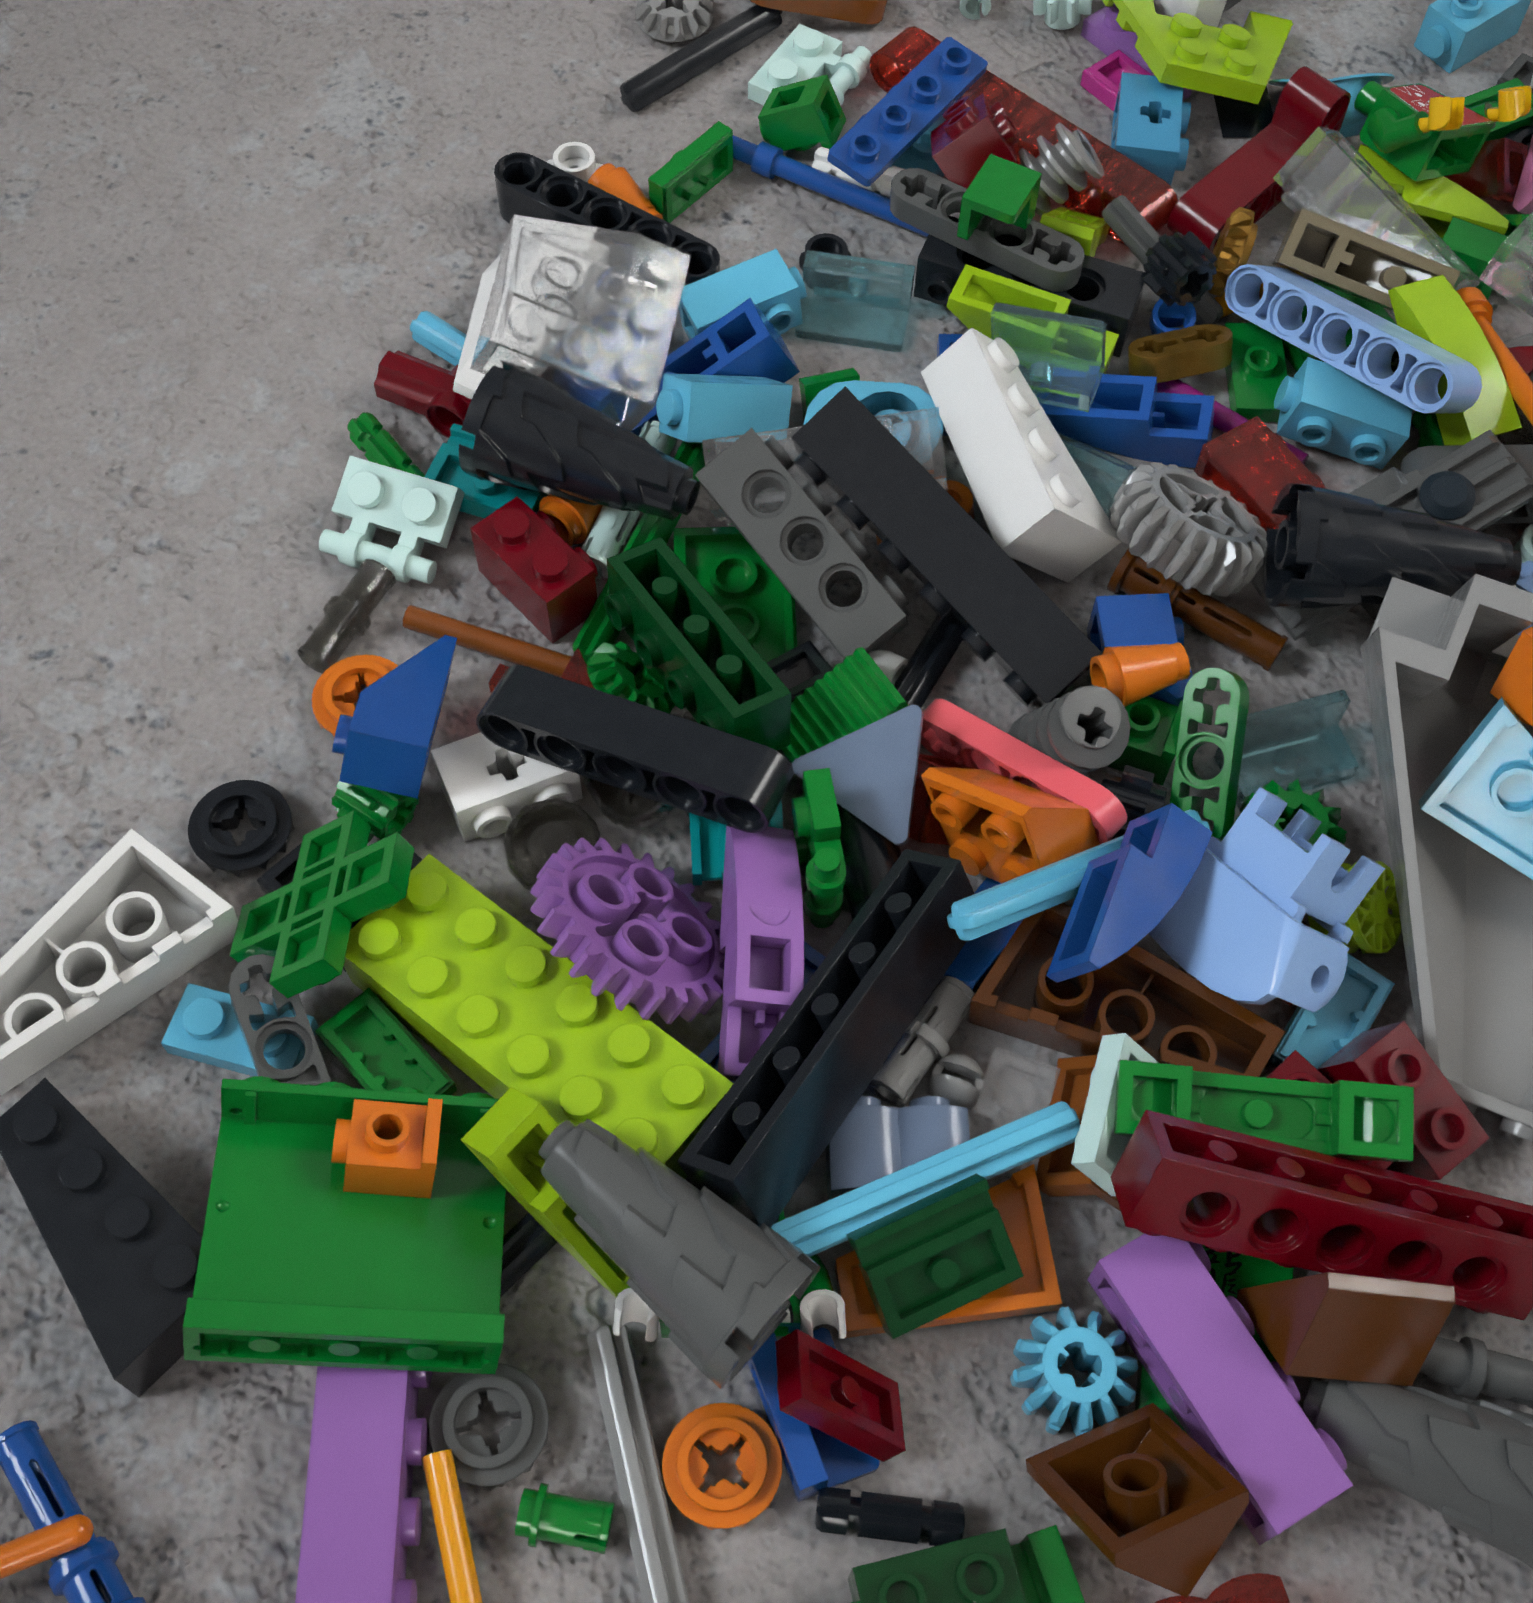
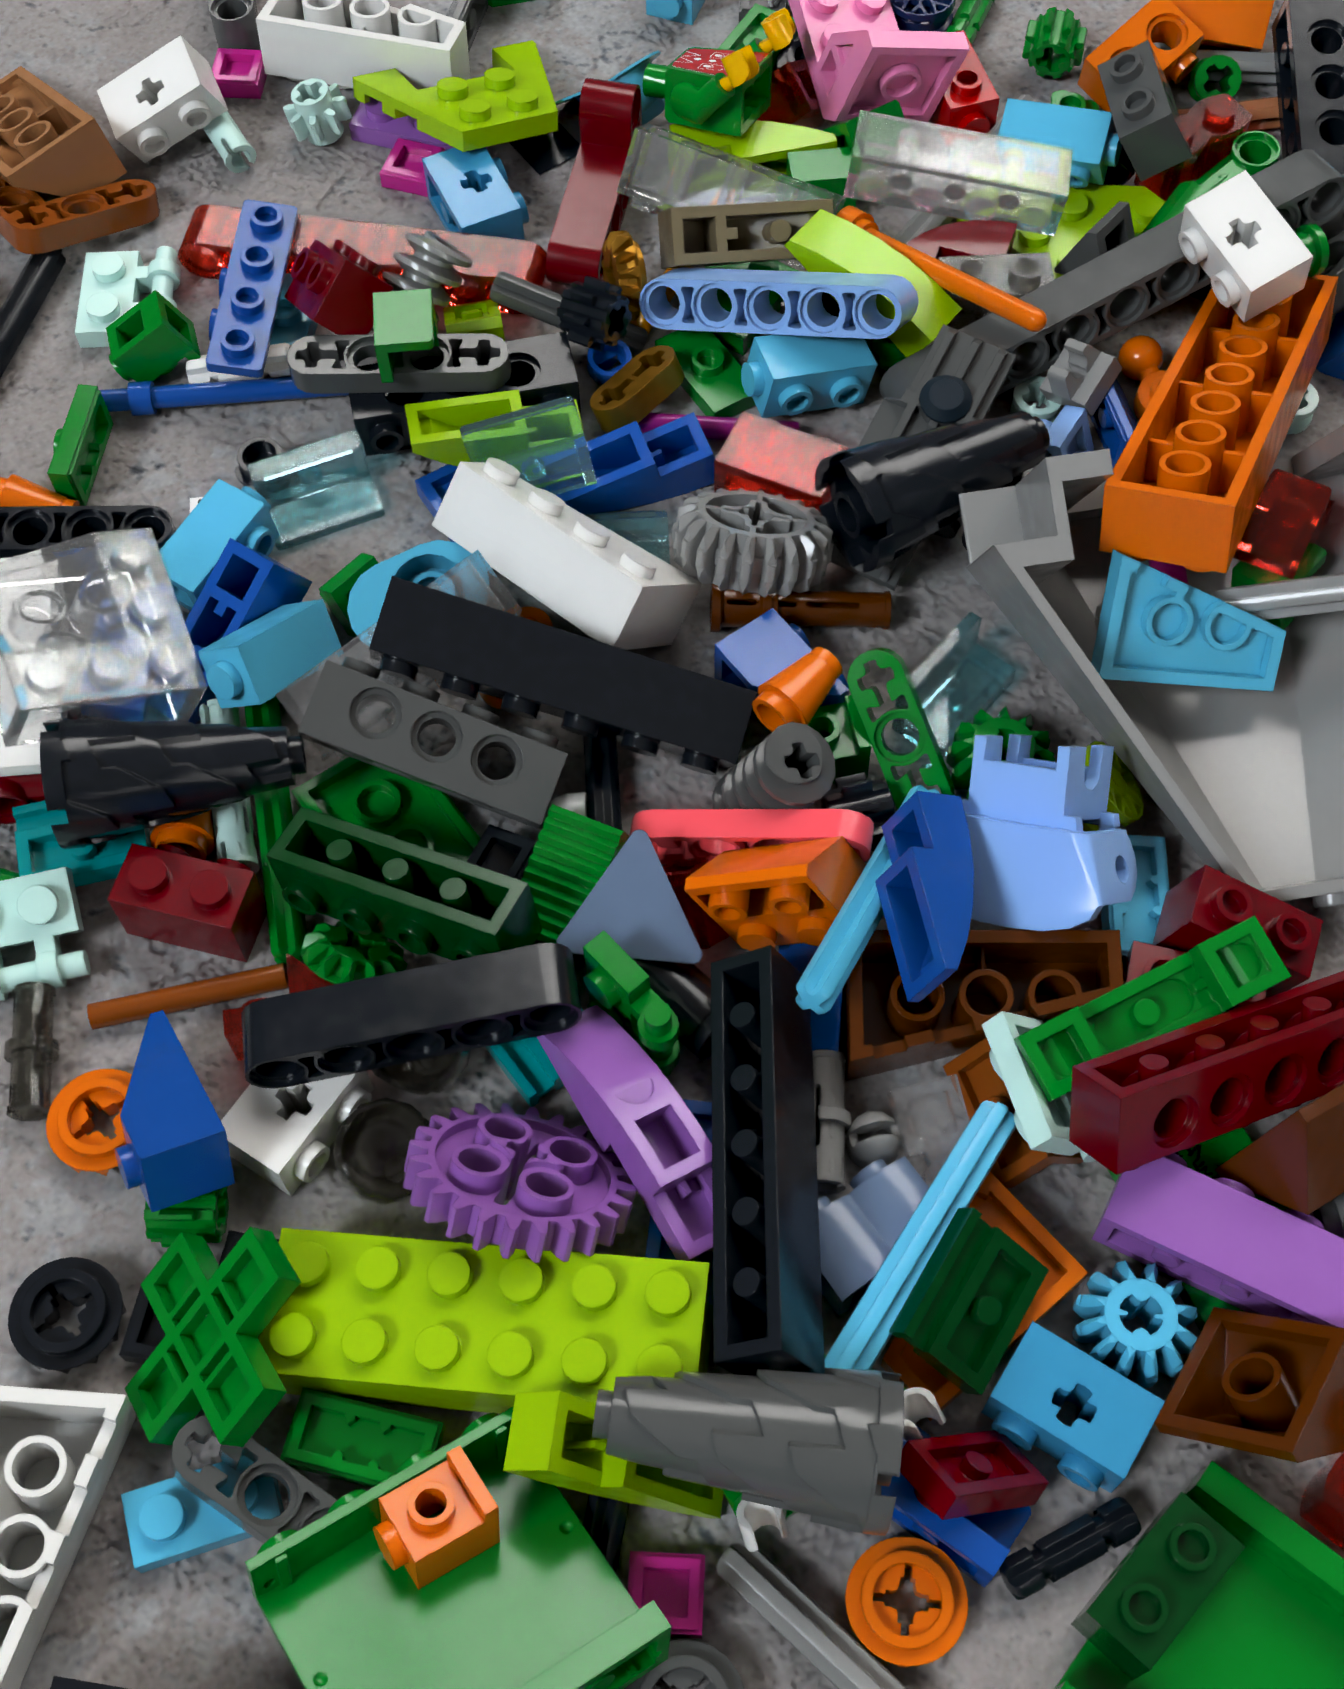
camera: 30 degrees left, 0 degrees up
(539, 1329) = (674, 1584): none -> dark pink tile
(967, 1361) = (1111, 1418): none -> dark azure brick

